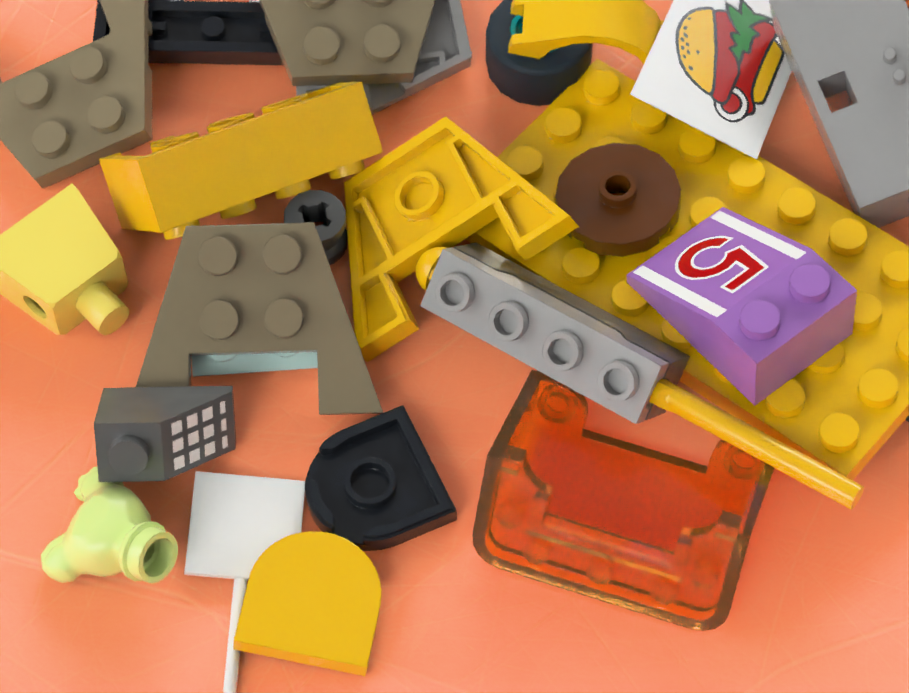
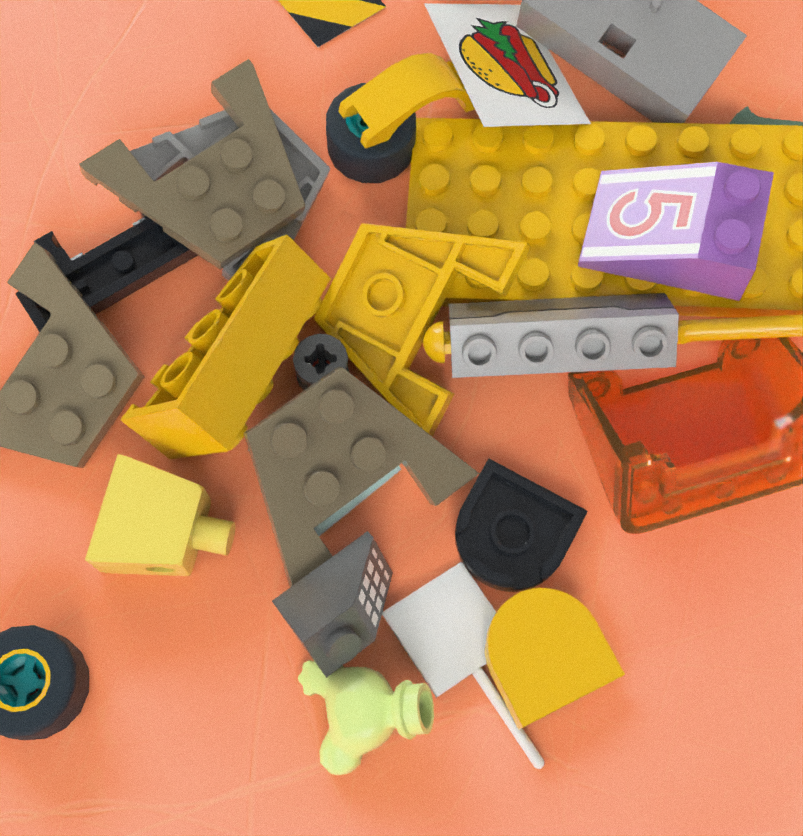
camera: 40 degrees left, 10 degrees up
(619, 222) = (546, 224): reddish brown plate -> none

